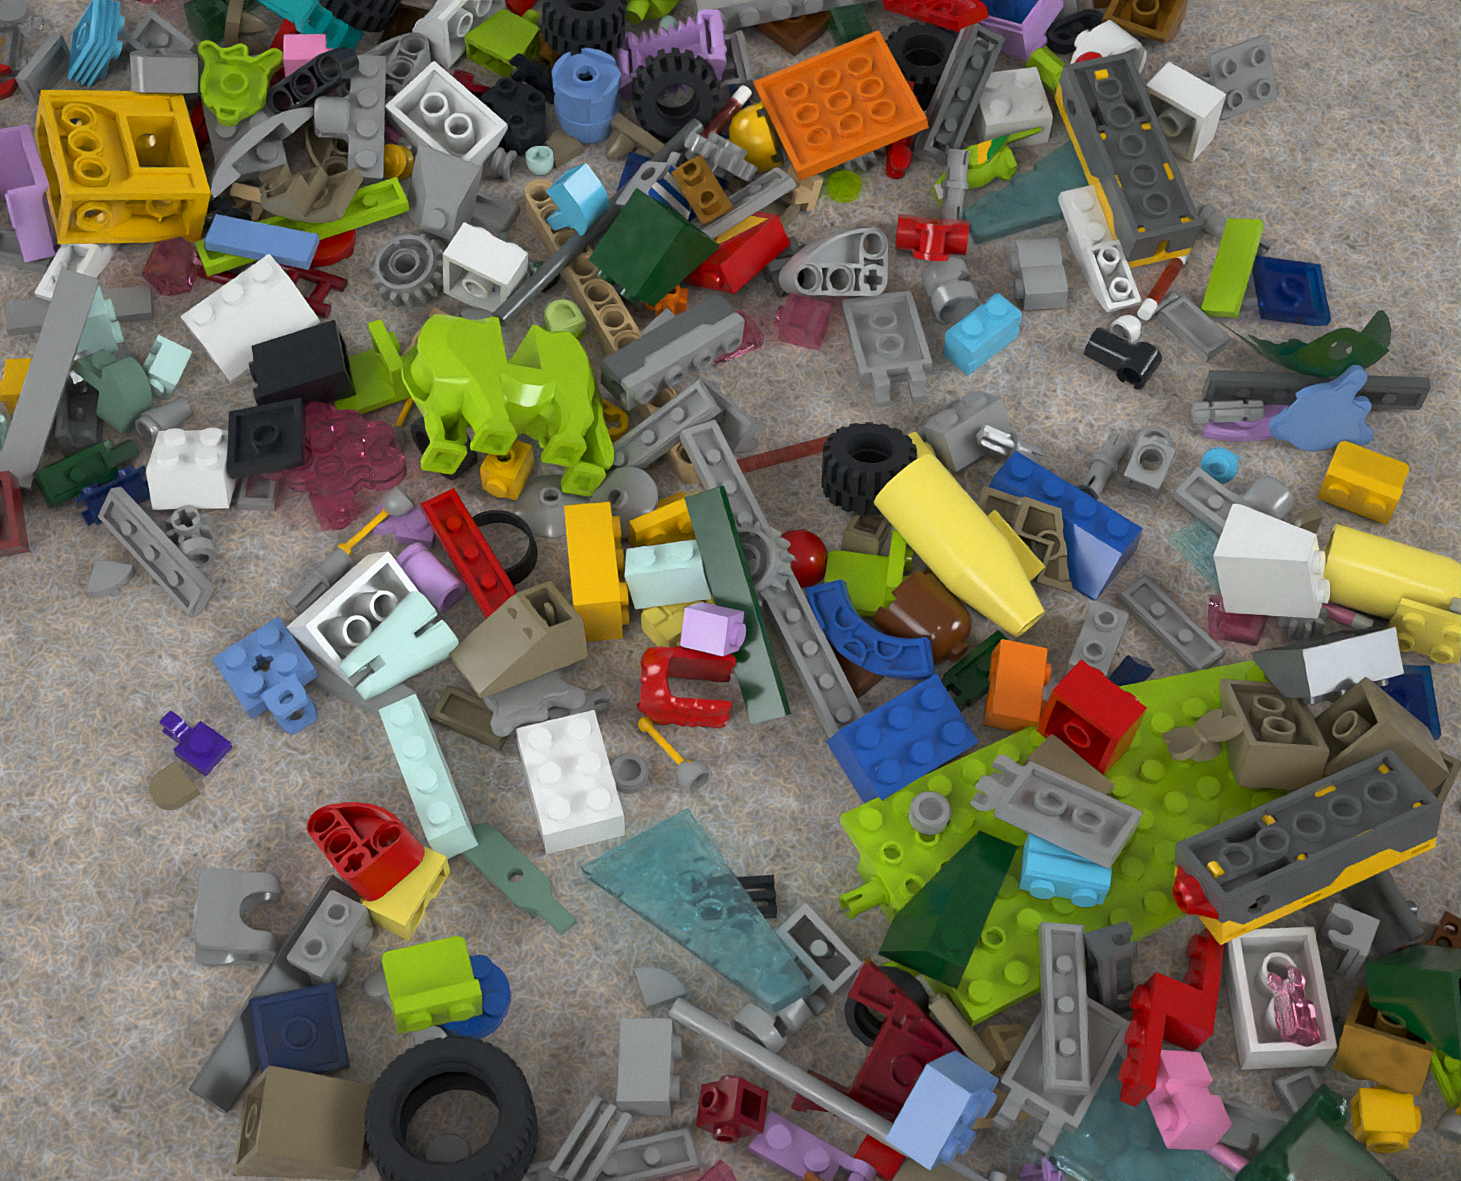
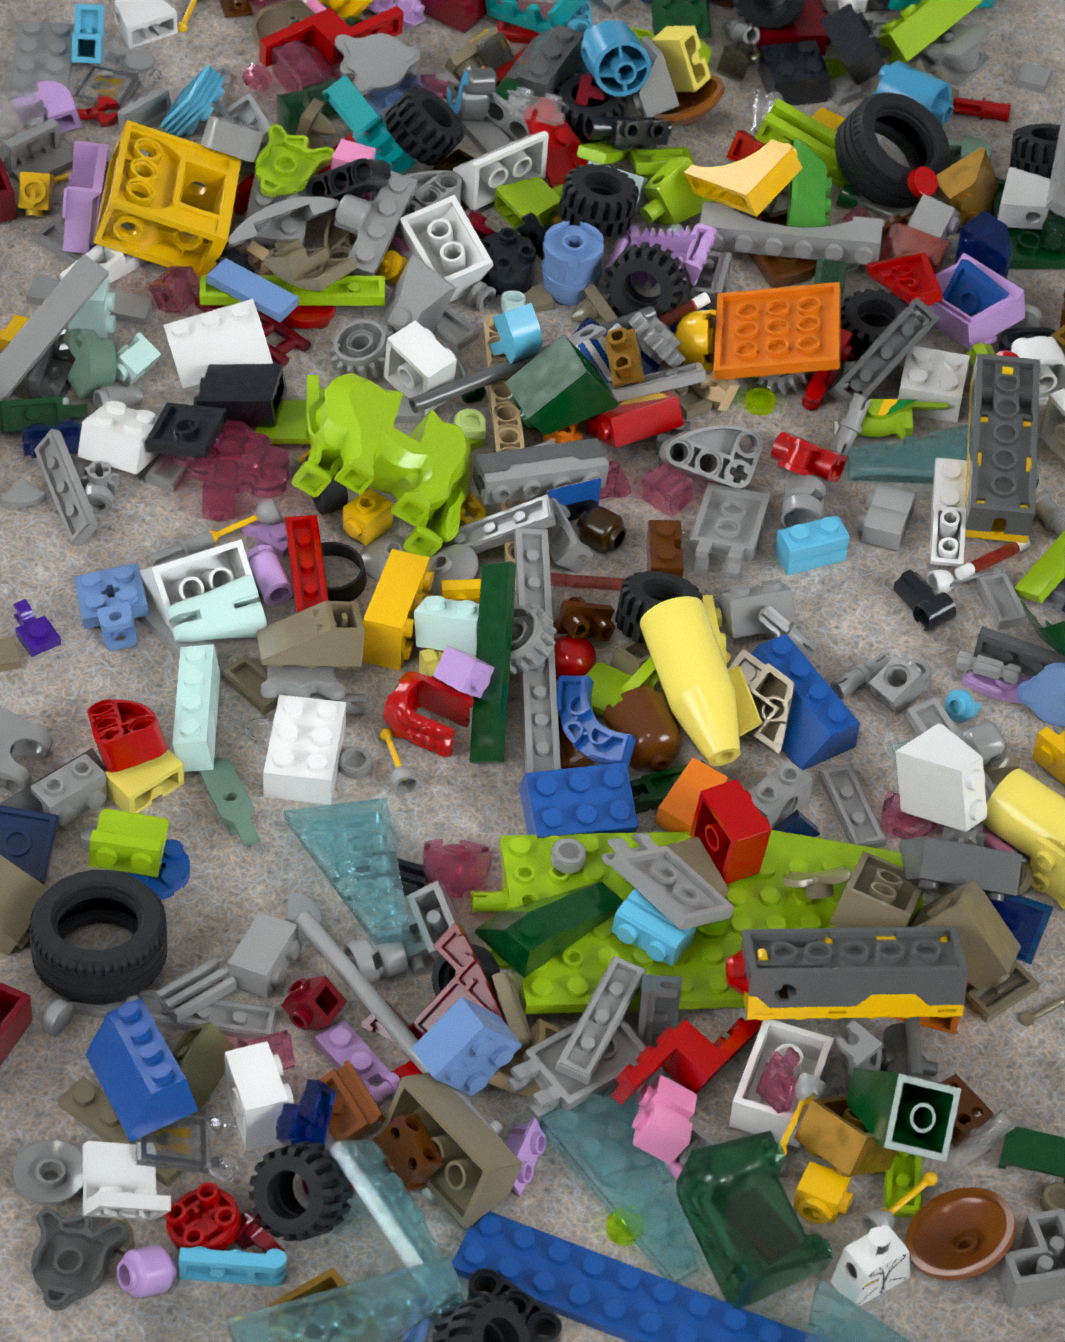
camera: 20 degrees right, 10 degrees down
(724, 367) = (578, 497): none -> blue sticker
(758, 392) = (601, 529): none -> dark brown head
(798, 508) = (585, 619): none -> reddish brown hips
(806, 864) = (456, 866): none -> clear pink cylinder
(834, 395) = (664, 547): none -> reddish brown brick
(1330, 1011) = (806, 1089): none -> hinge

